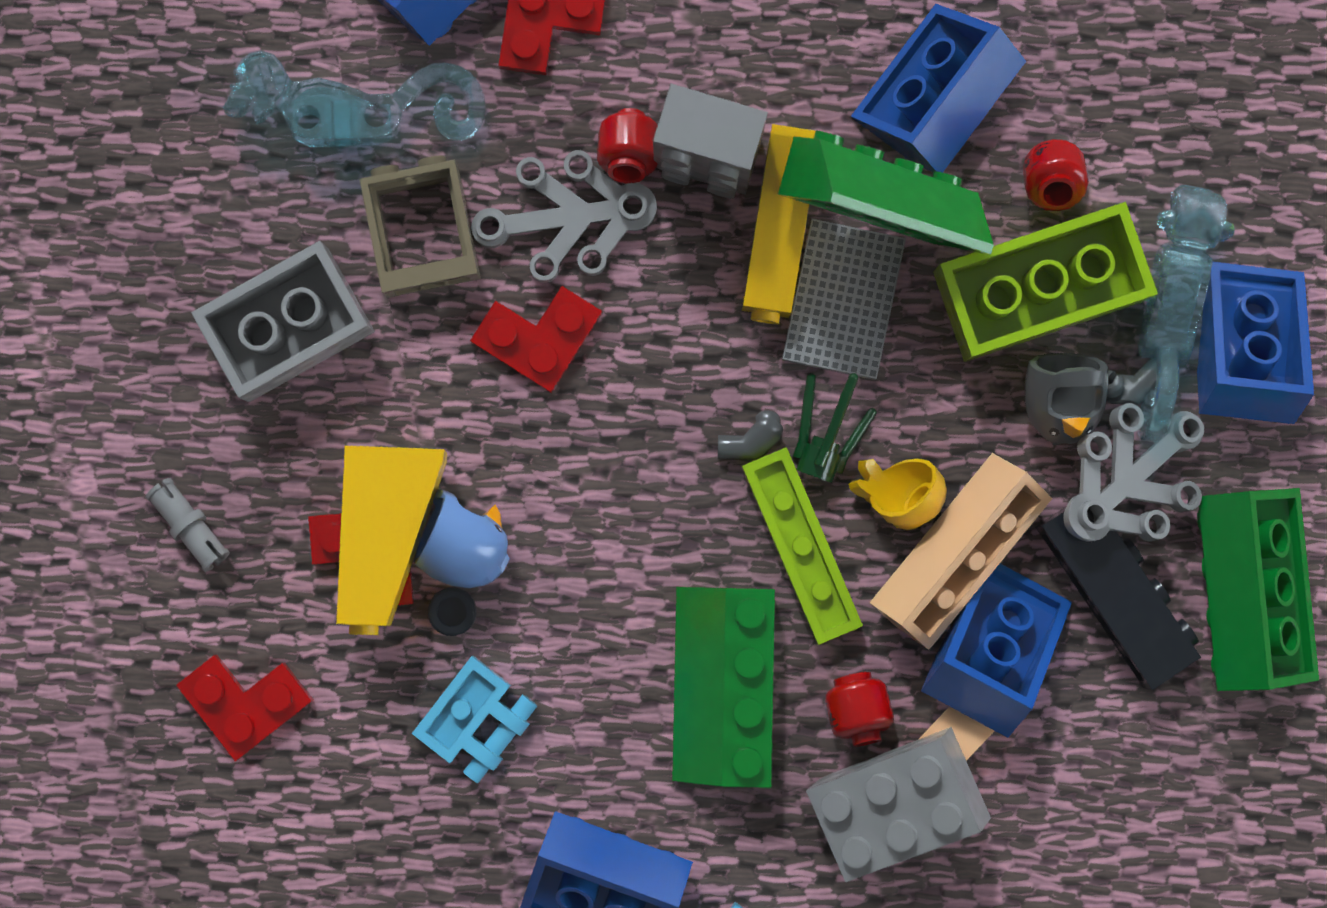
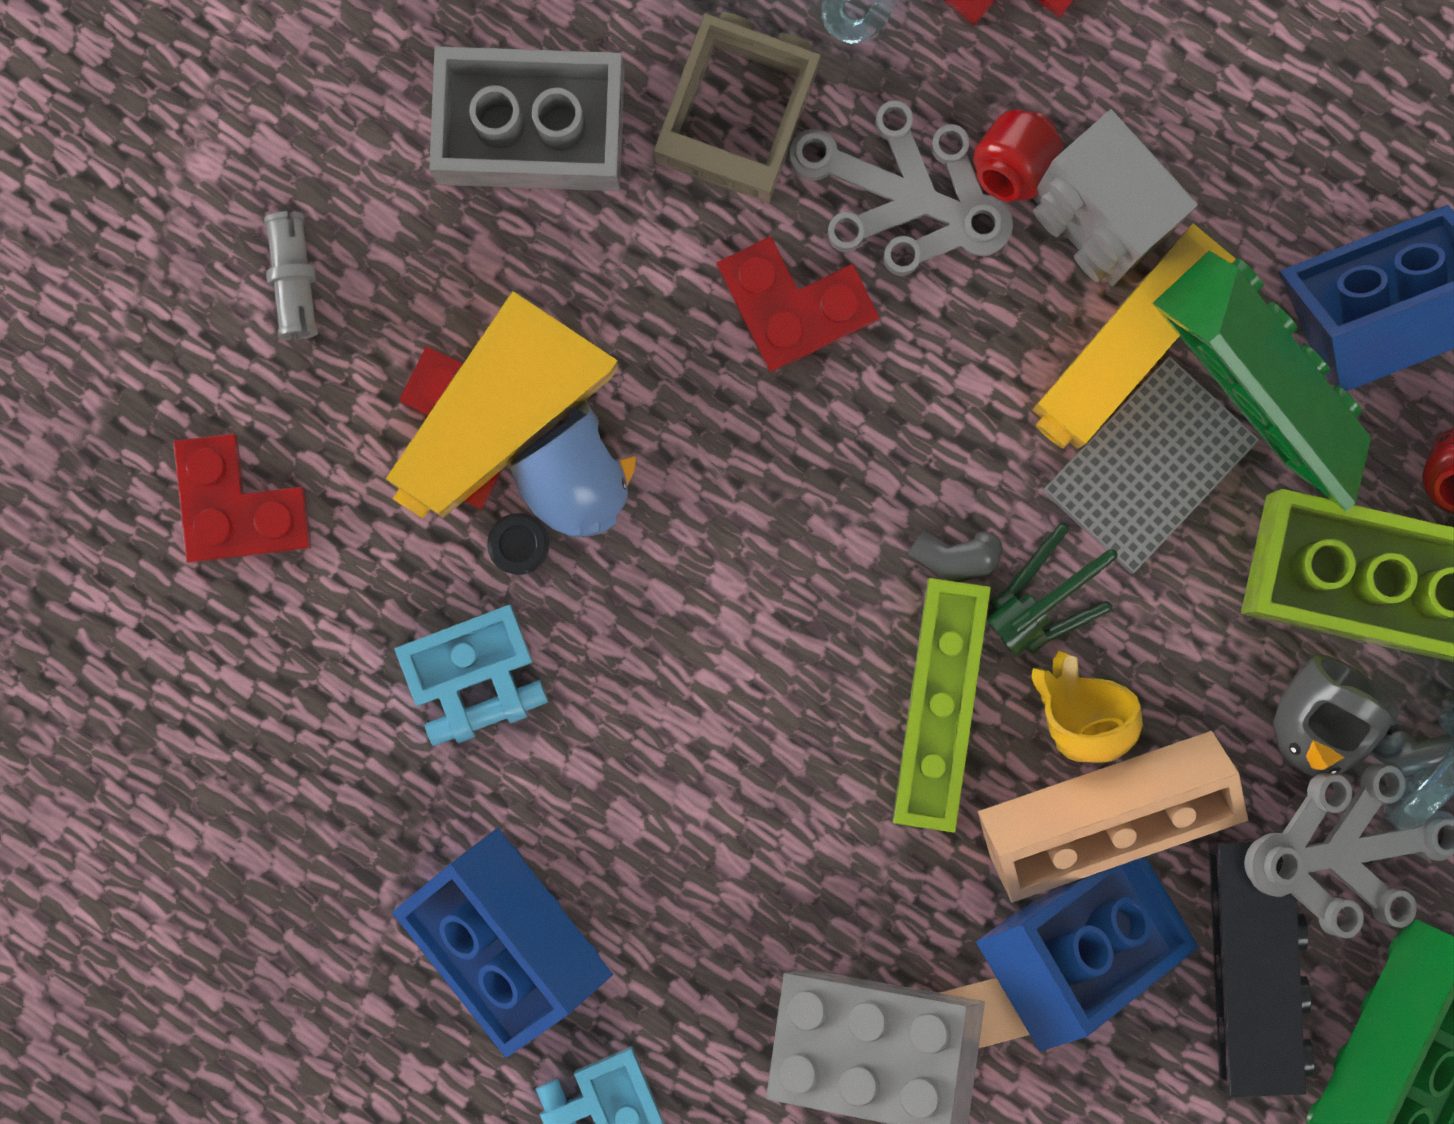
camera: 30 degrees right, 0 degrees up
(723, 686) = (763, 805): green slope -> none
(859, 708) = (896, 920): red head -> none

